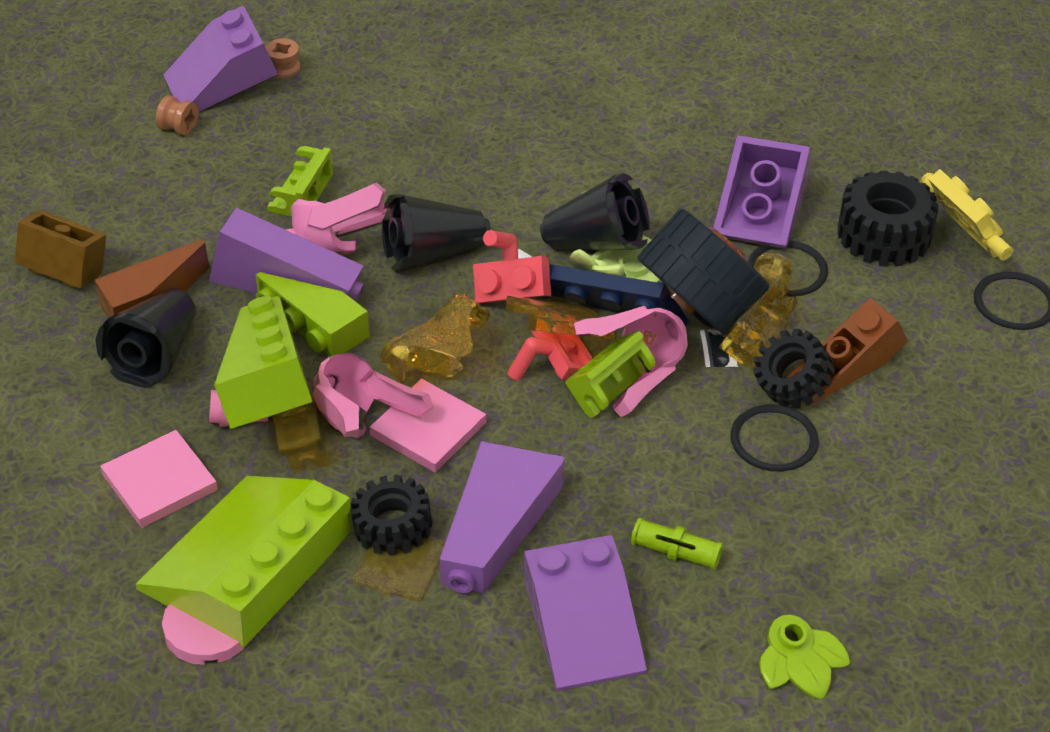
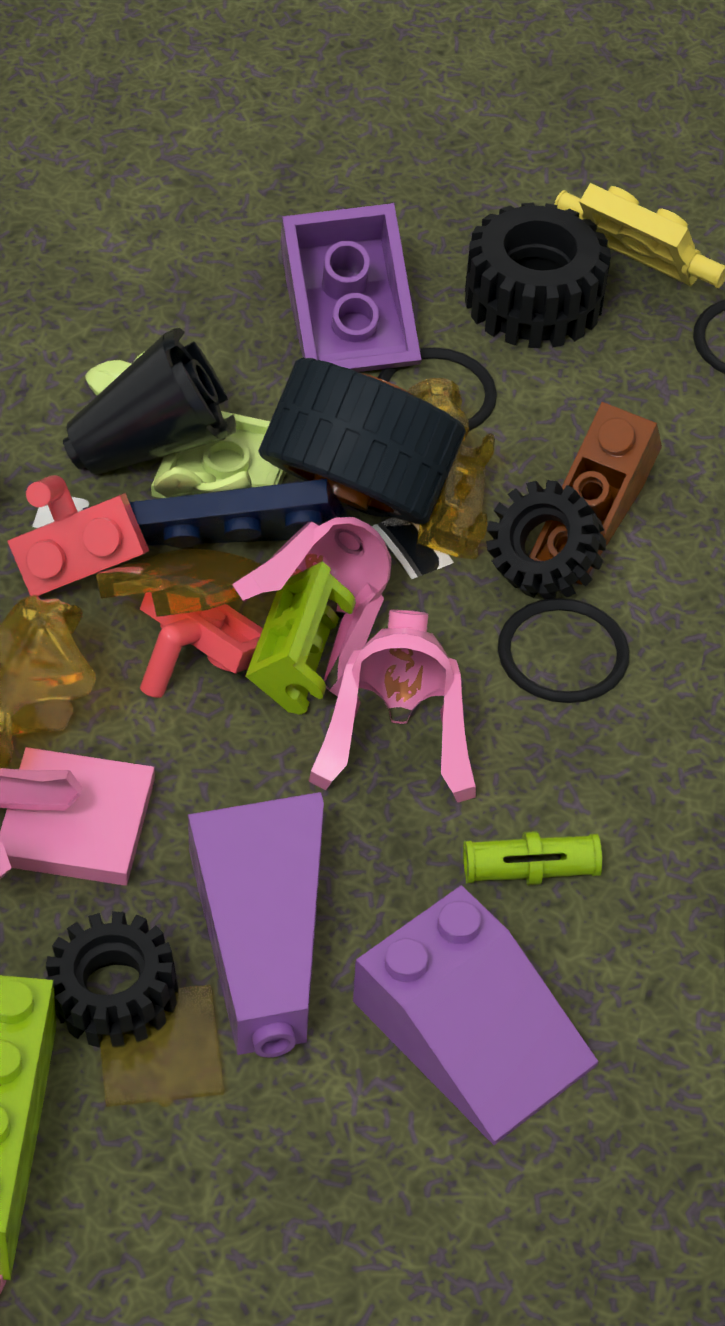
camera: 30 degrees left, 5 degrees up
(661, 413) = (402, 668): none -> bright pink piece

